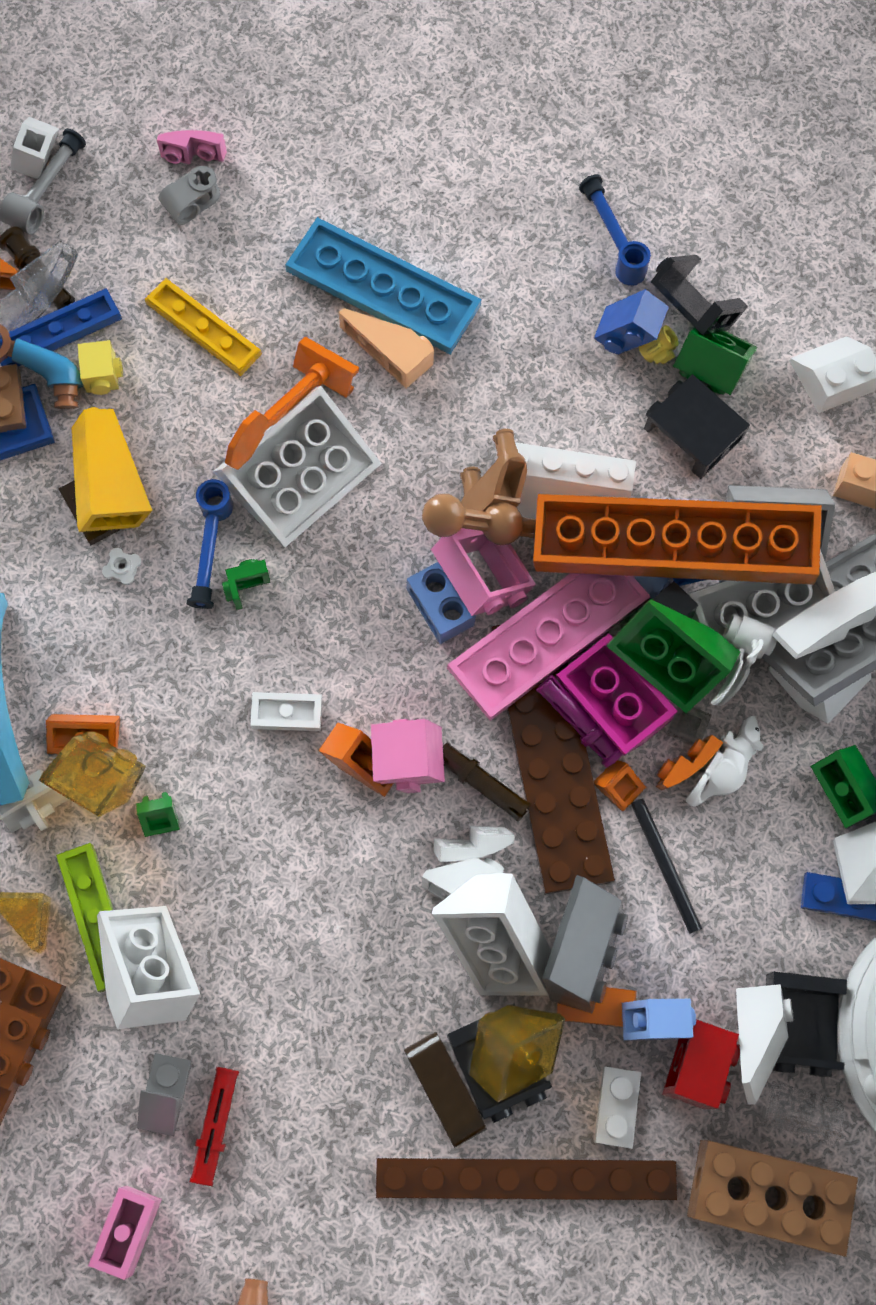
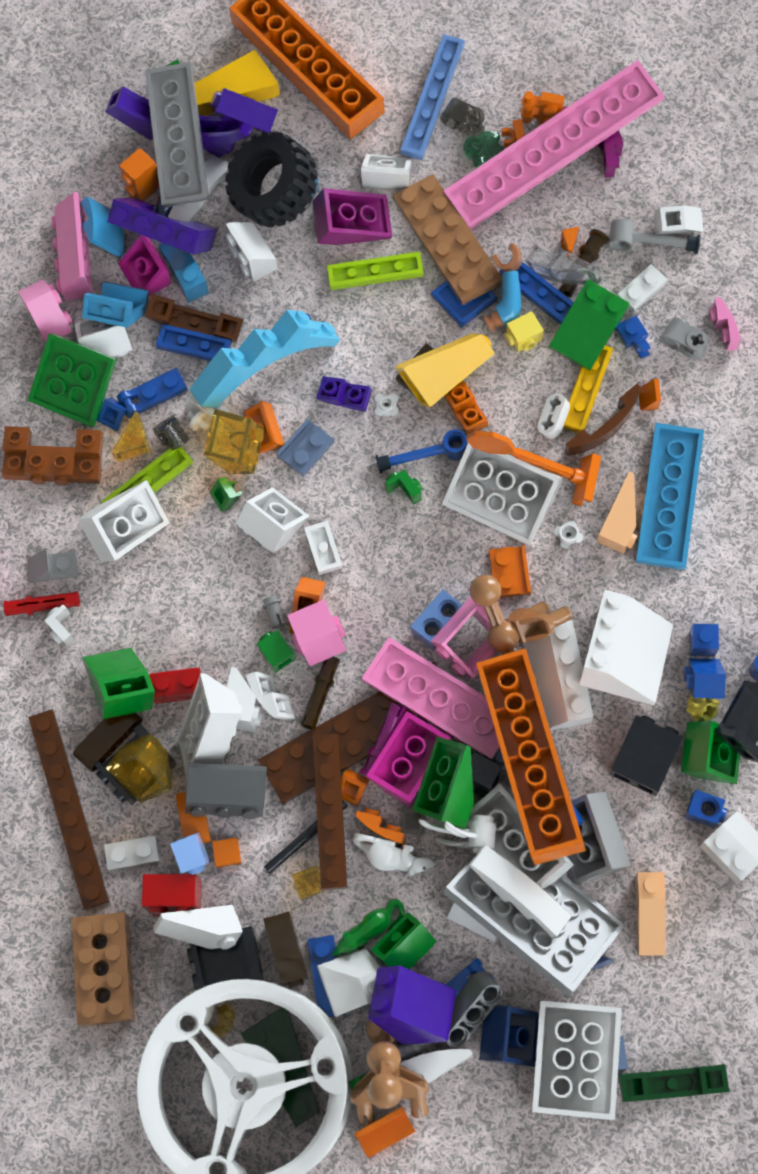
camera: 80 degrees right, 0 degrees up
(40, 858) = (171, 433): none -> clear smoke piece
(81, 616) = (340, 393): none -> dark purple slope
(101, 219) = (643, 287): none -> white plate
(126, 285) = (589, 324): none -> green slope
(135, 689) = (305, 447): none -> sand blue plate
(156, 249) = (633, 333): none -> blue plate
(171, 474) = (465, 408): none -> orange slope
(221, 764) = (271, 519): none -> white slope
(229, 369) = (553, 416): none -> white beam
(246, 259) = (650, 395): none -> orange slope
(251, 289) = (584, 442): none -> reddish brown slope
(267, 1113) = (54, 621): none -> white bracket
(350, 804) = (274, 611): none -> light grey pin
(378, 1044) = (119, 683): none -> green slope
(383, 406) = (570, 527): none -> white plate
(403, 496) = (510, 570): none -> orange plate
(406, 819) = (275, 650): none -> green brick
(408, 967) = (174, 685): none -> red brick
(563, 398) = (627, 649): none -> white slope
(578, 312) = (704, 639): none -> blue brick
(652, 819) = (329, 812): none -> reddish brown plate
(656, 976) = (226, 852): none -> orange tile
(730, 876) = (308, 882): none -> clear yellow plate
(778, 398) = (694, 809): none -> blue brick
(810, 818) = (372, 926): none -> green animal
(814, 935) = (286, 949): none -> dark brown slope

